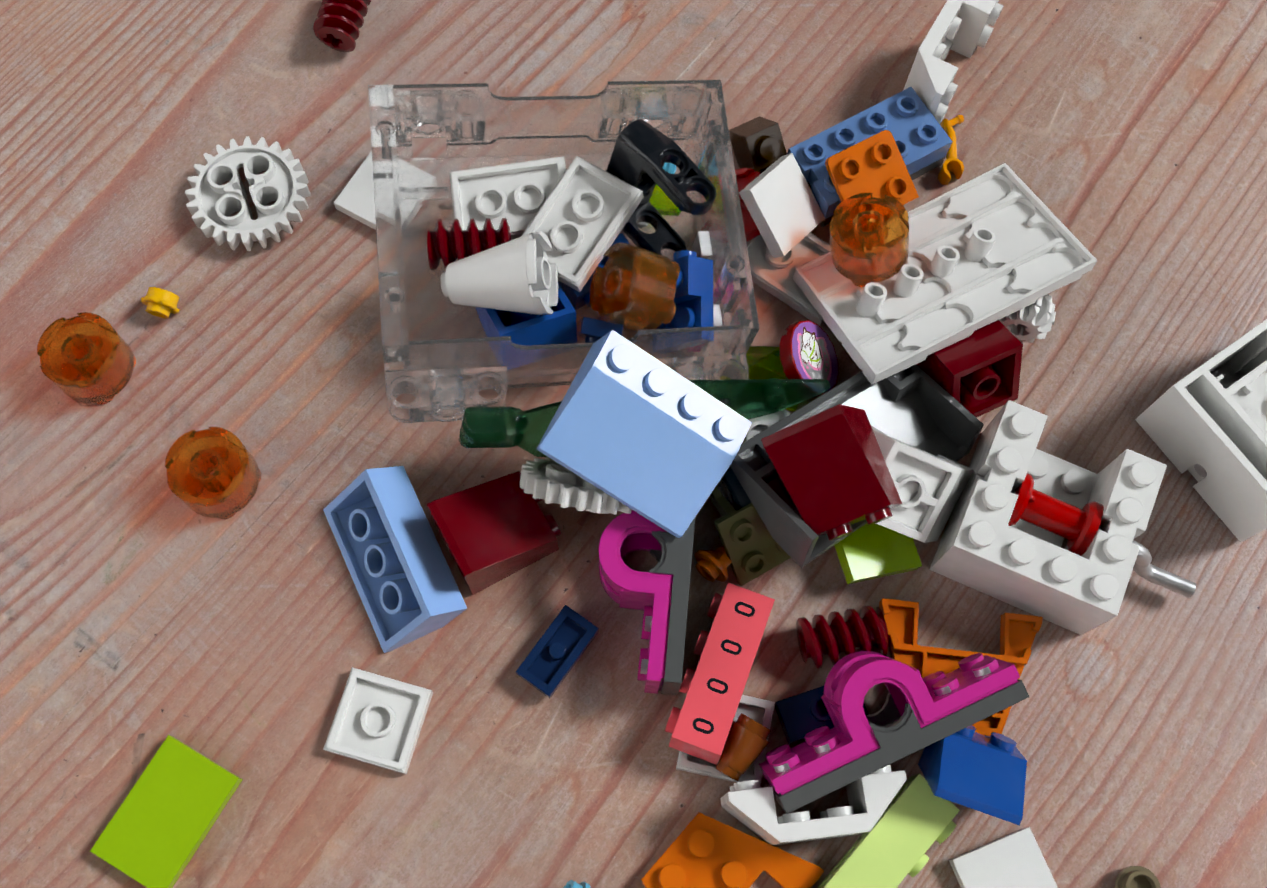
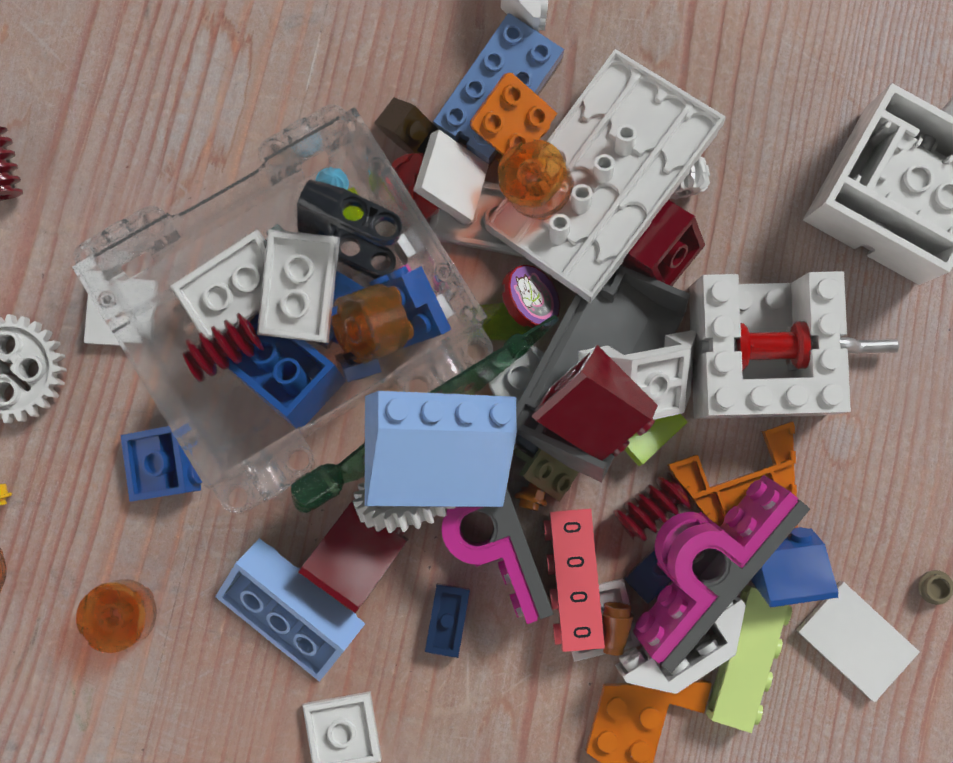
camera: 20 degrees left, 15 degrees up
(342, 348) = (157, 465): none -> blue plate
(506, 277) = (268, 369): white cone -> none
(951, 163) = (560, 40): light orange piece -> none

